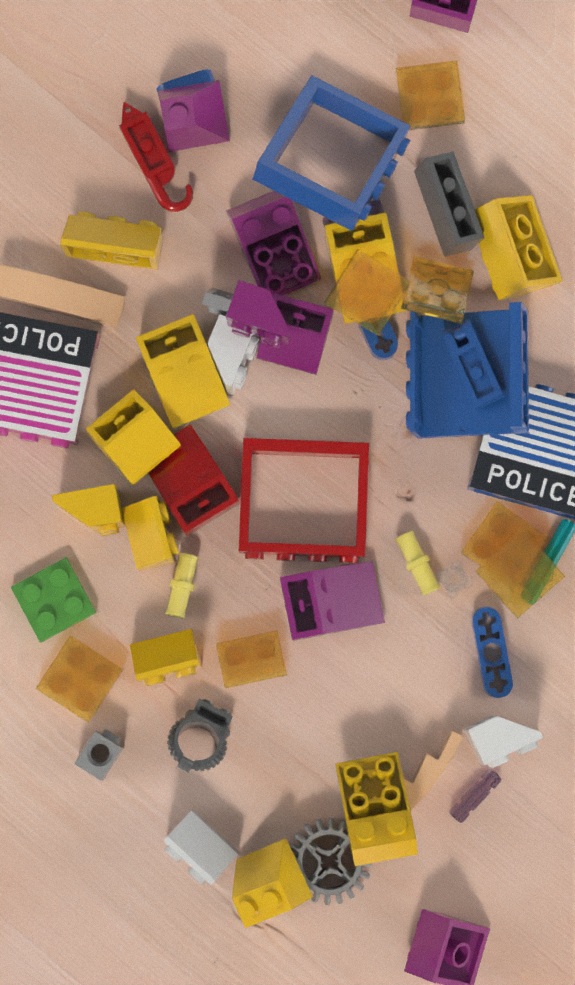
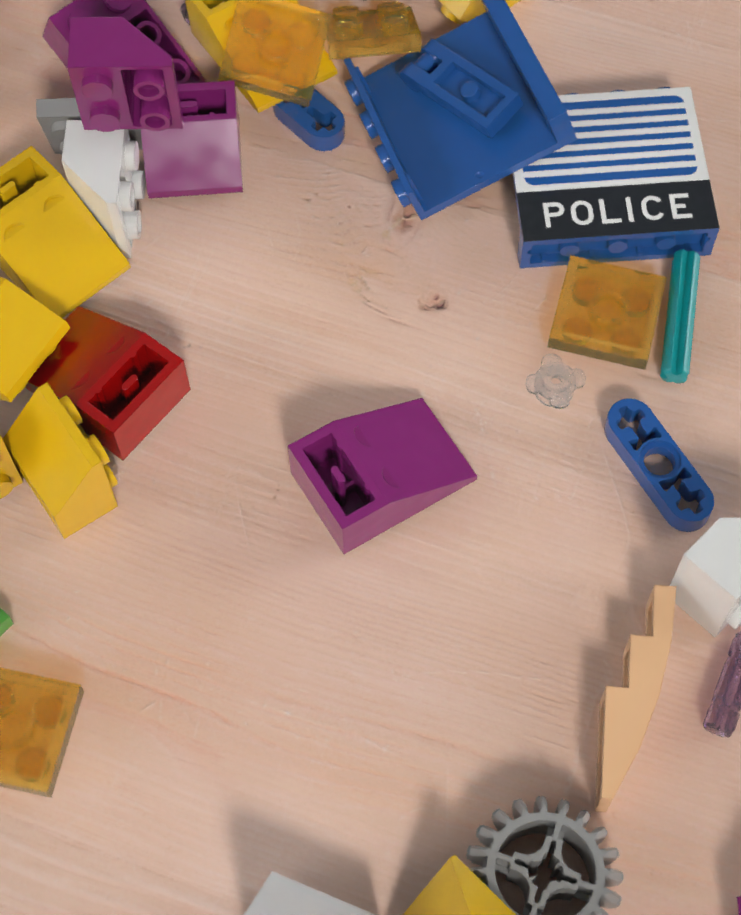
camera: 20 degrees left, 20 degrees down
(89, 764) = (86, 865): light grey brick -> none
(165, 656) = (147, 640): yellow slope -> none
(182, 585) = (138, 530): light yellow pin -> none
(206, 717) = (247, 718): dark grey piece -> none
(251, 659) = (288, 600): clear yellow plate -> none
(308, 448) = (263, 281): red window -> none
(376, 809) = (593, 748): yellow slope -> none
(417, 563) = (492, 378): light yellow pin -> none
(520, 573) = (649, 333): clear yellow plate -> none

